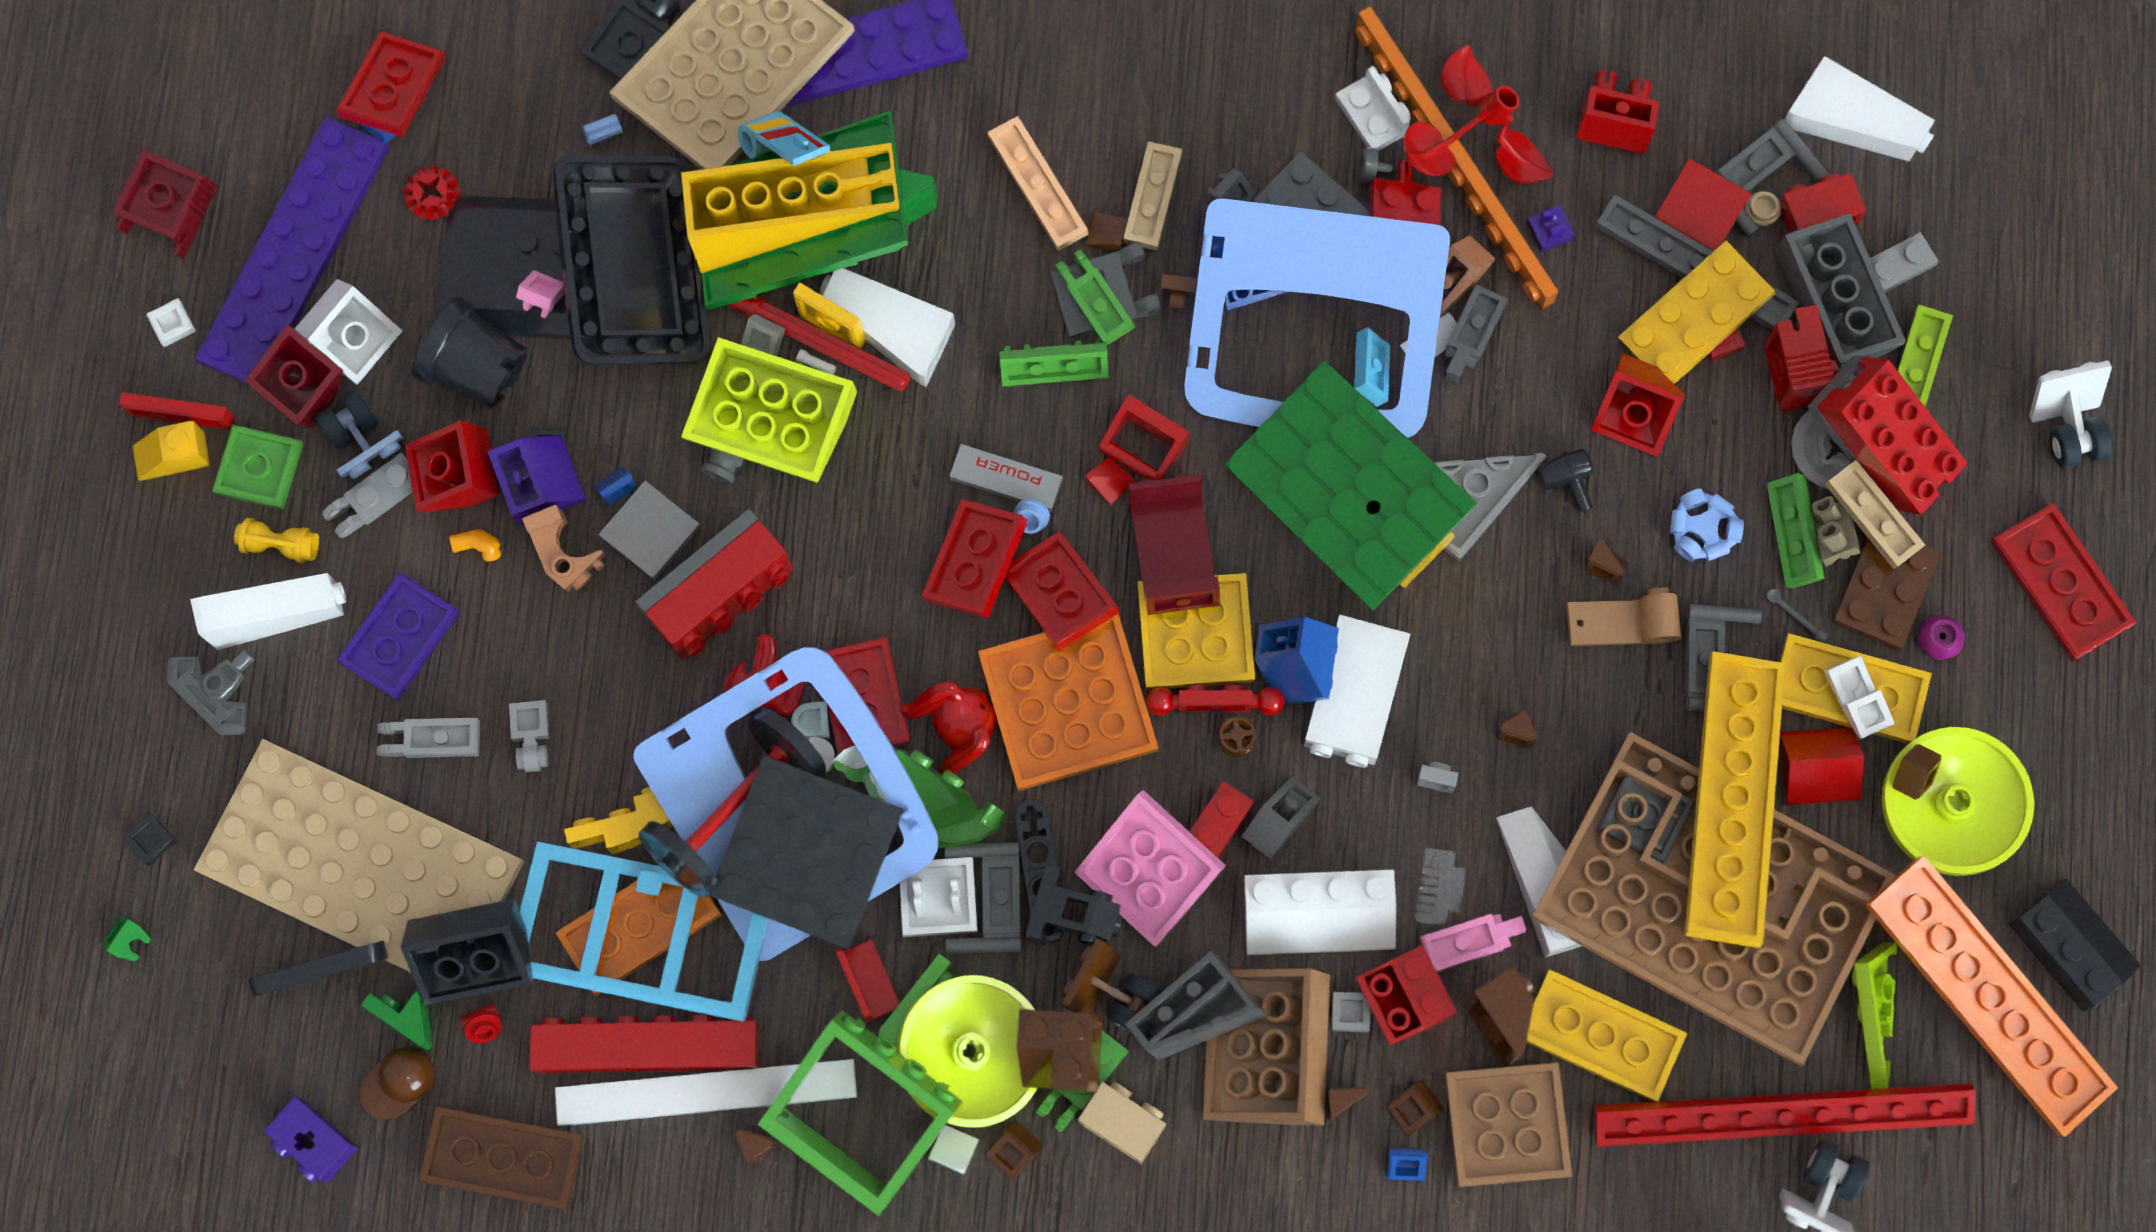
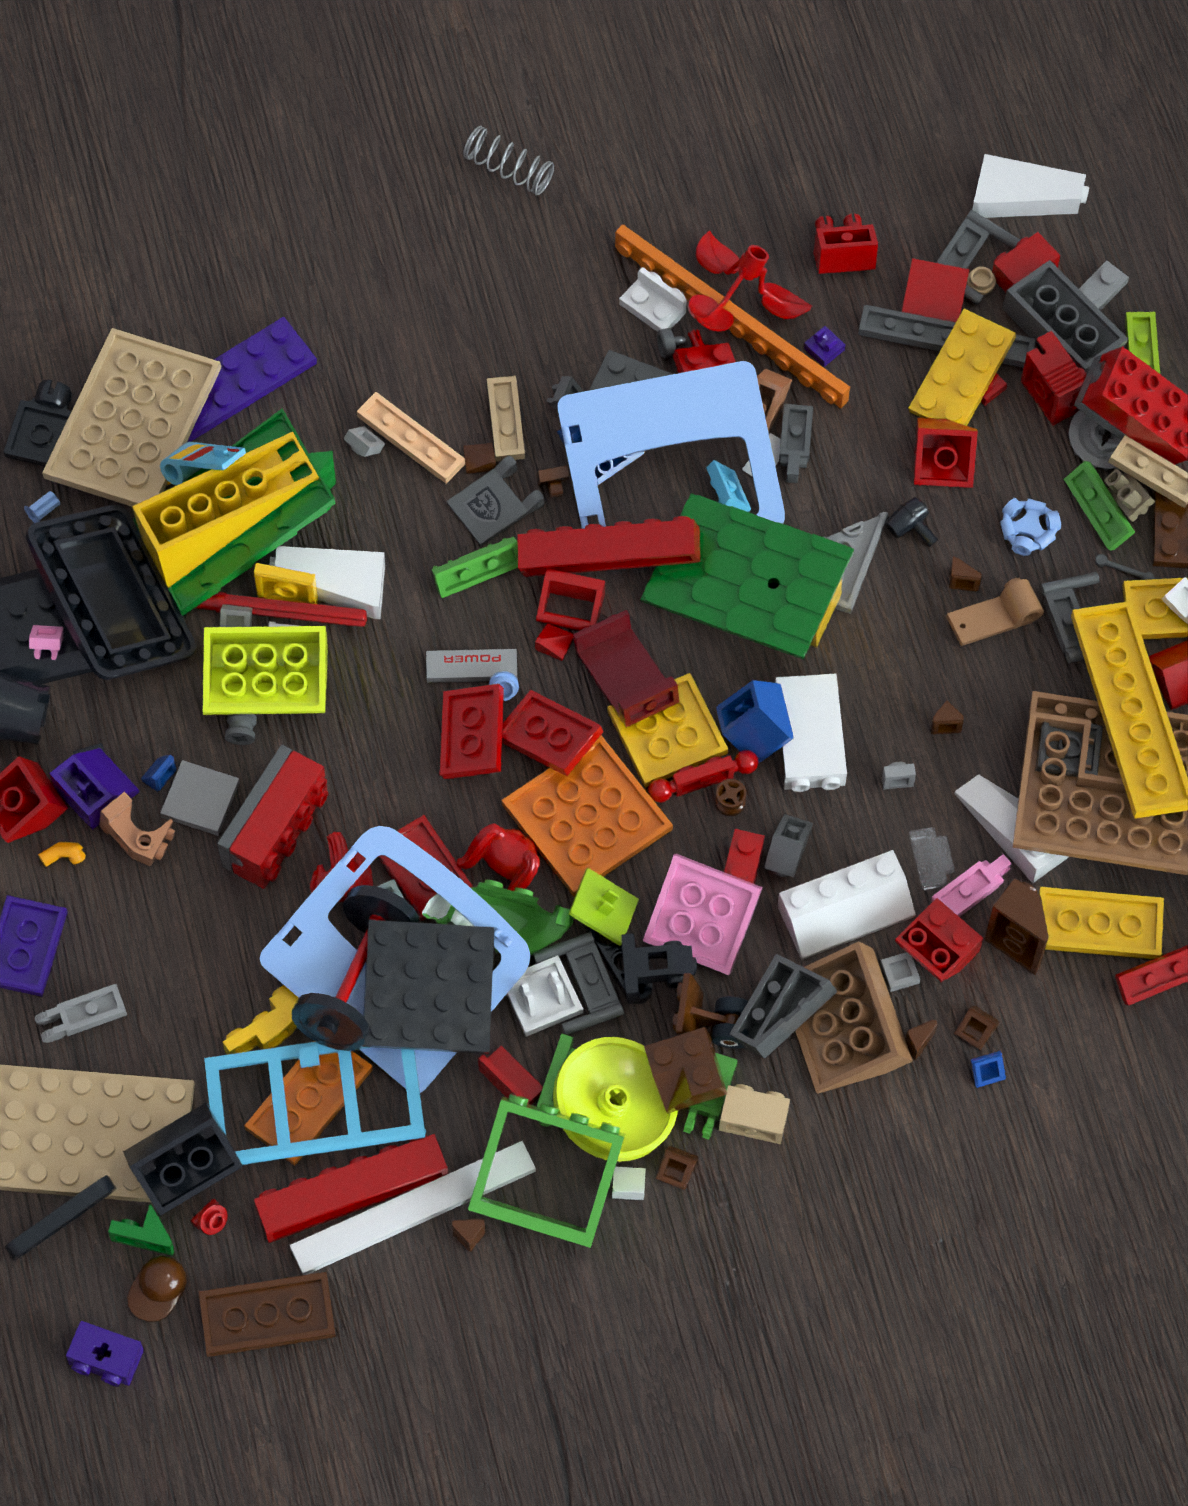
camera: 25 degrees left, 10 degrees down
(528, 724) = (161, 976): light grey plate -> none
(983, 170) = (363, 441): none -> light grey plate
(1043, 818) = (603, 906): none -> lime piece
(1096, 300) = (491, 507): bright green hinge -> none
(1207, 394) = (609, 547): none -> red brick
(1508, 1125) = (1054, 1013): medium nougat plate -> none

